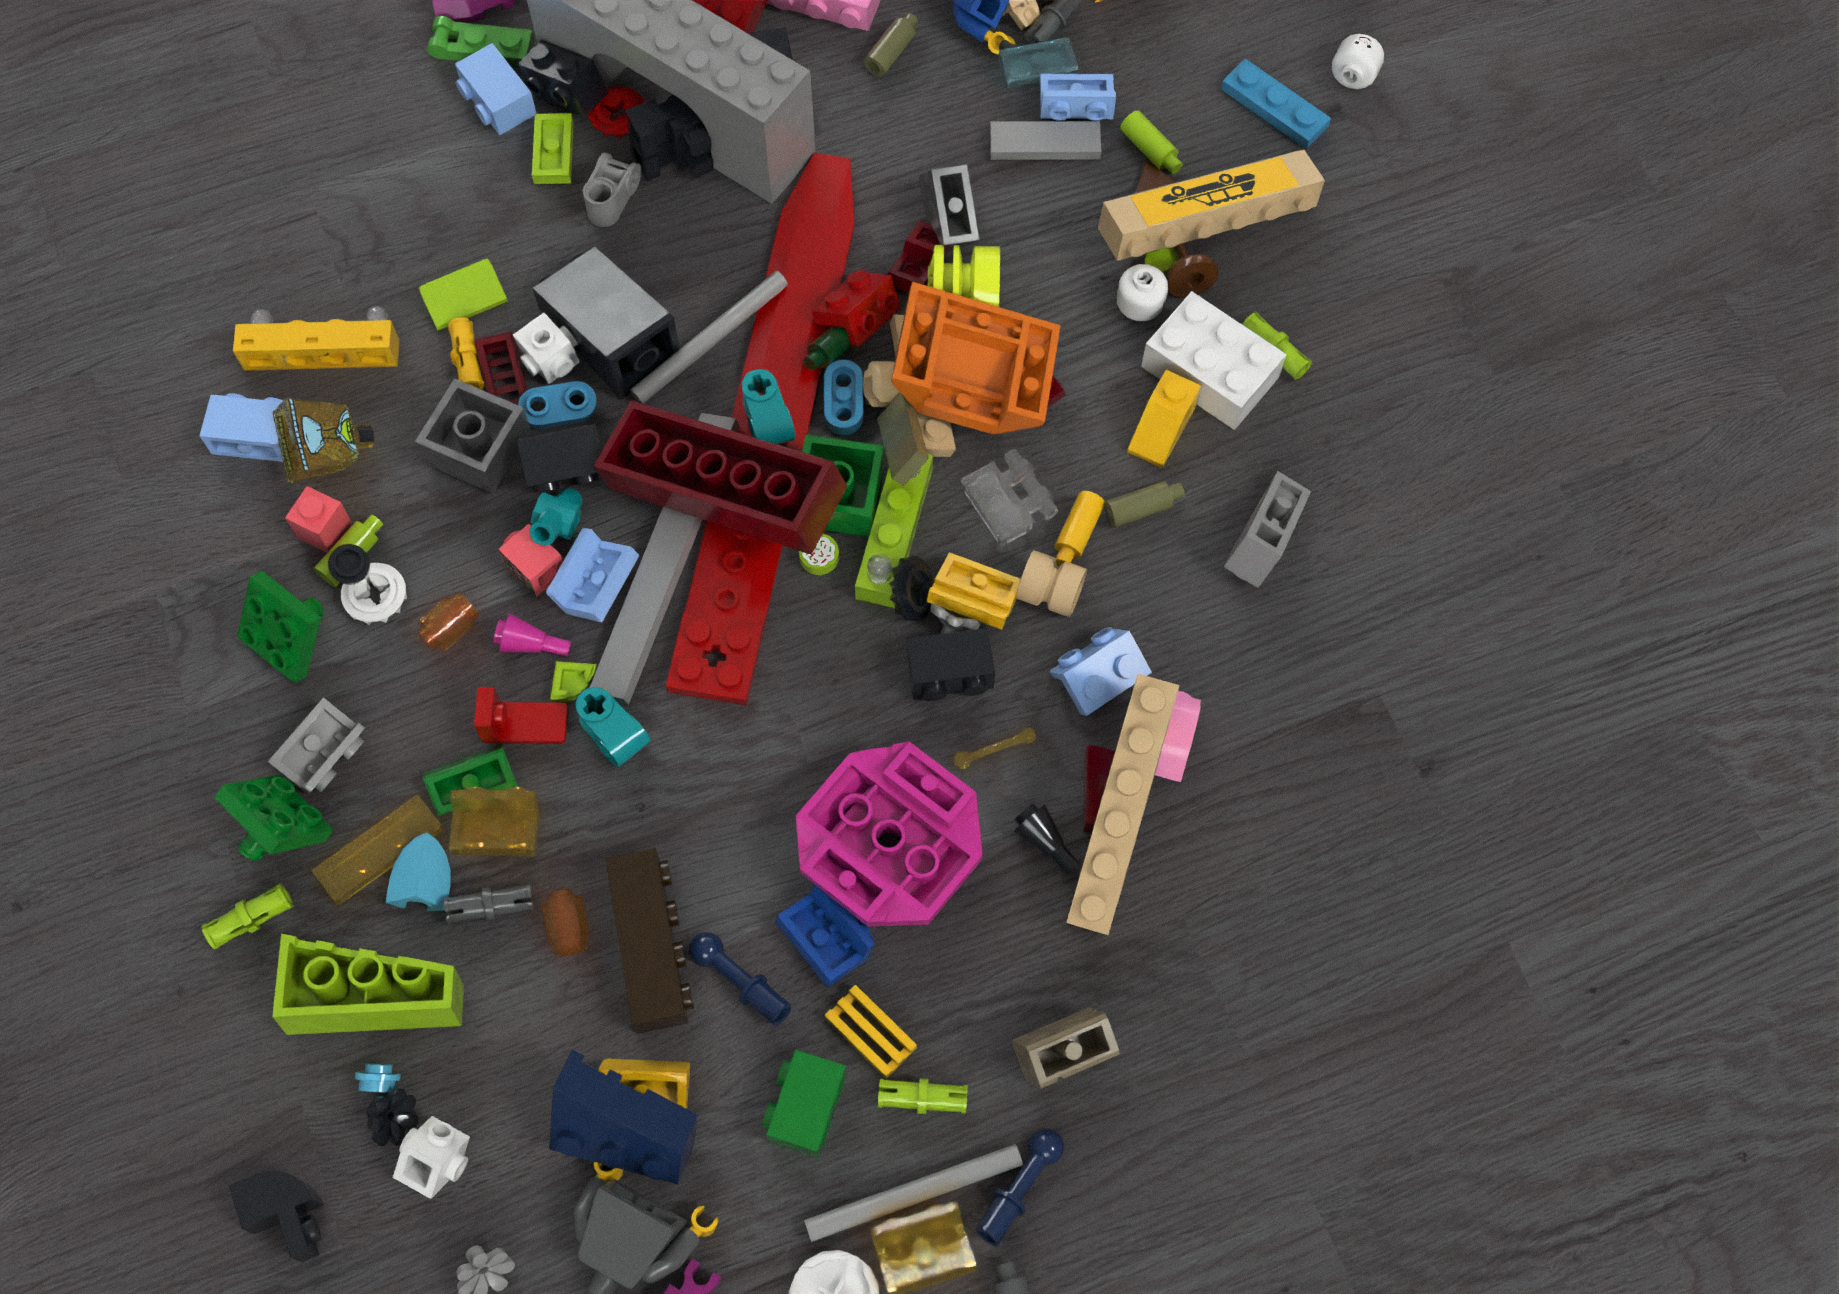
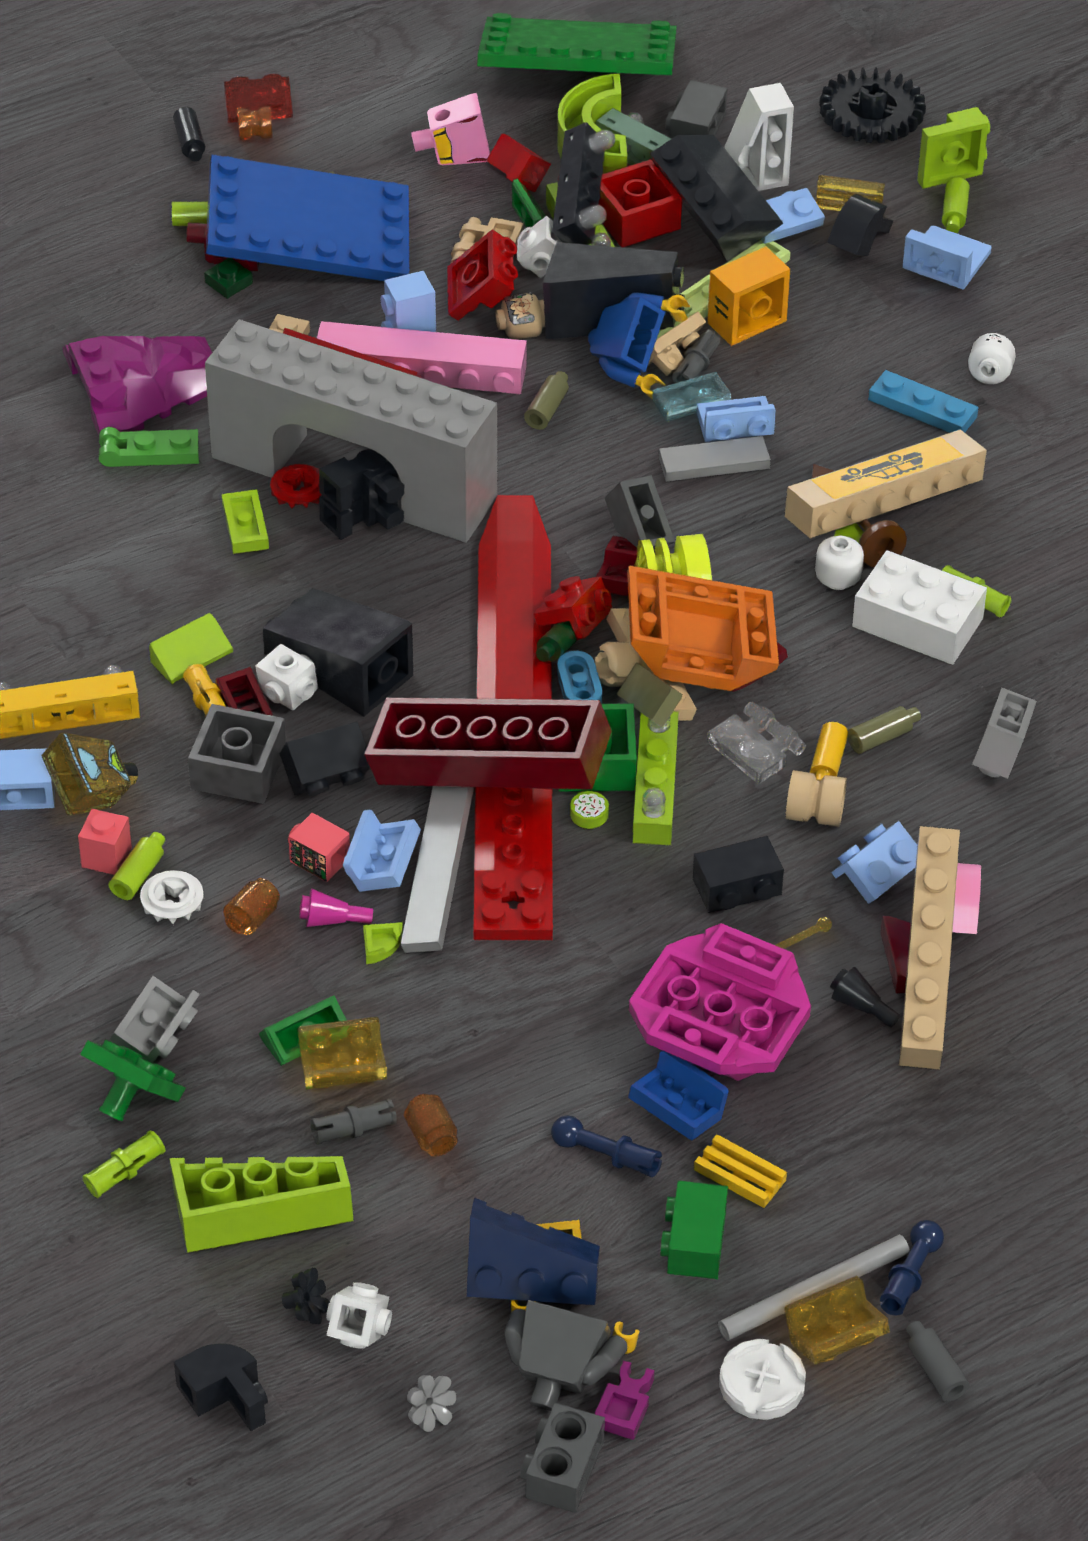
camera: 10 degrees left, 20 degrees down
(286, 629) = (114, 917): green plate -> none
(349, 564) = (147, 868): black plate -> none
(375, 850) = (232, 1097): clear yellow tile -> none
(377, 1078) = (283, 1268): medium azure plate -> none
(420, 875) = (281, 1109): medium azure brick -> none
(495, 89) = (176, 480): light blue brick -> none
(518, 721) = (341, 977): red bracket -> none
(556, 516) = (335, 805): teal axle -> none
(558, 408) = (309, 718): dark azure plate -> none
(563, 78) = (243, 460): black brick -> none
(610, 189) = (310, 548): light grey piece -> none
(614, 730) = (433, 969): teal piece -> none
(647, 940) = (513, 1126): dark brown brick -> none
(709, 337) = (442, 647): light grey piece -> none
(766, 413) = (510, 681): teal piece -> none
(911, 602) = (687, 818): black gear -> none
(922, 1096) = (802, 1211): lime pin -> none
(952, 621) = (724, 838): light grey plant -> none
(974, 590) = (745, 814): yellow plate -> none
(1065, 1047) = (925, 1146): dark tan brick -> none
(1151, 142) = (815, 446): lime cylinder -> none
(1164, 418) = (886, 658): yellow slope -> none

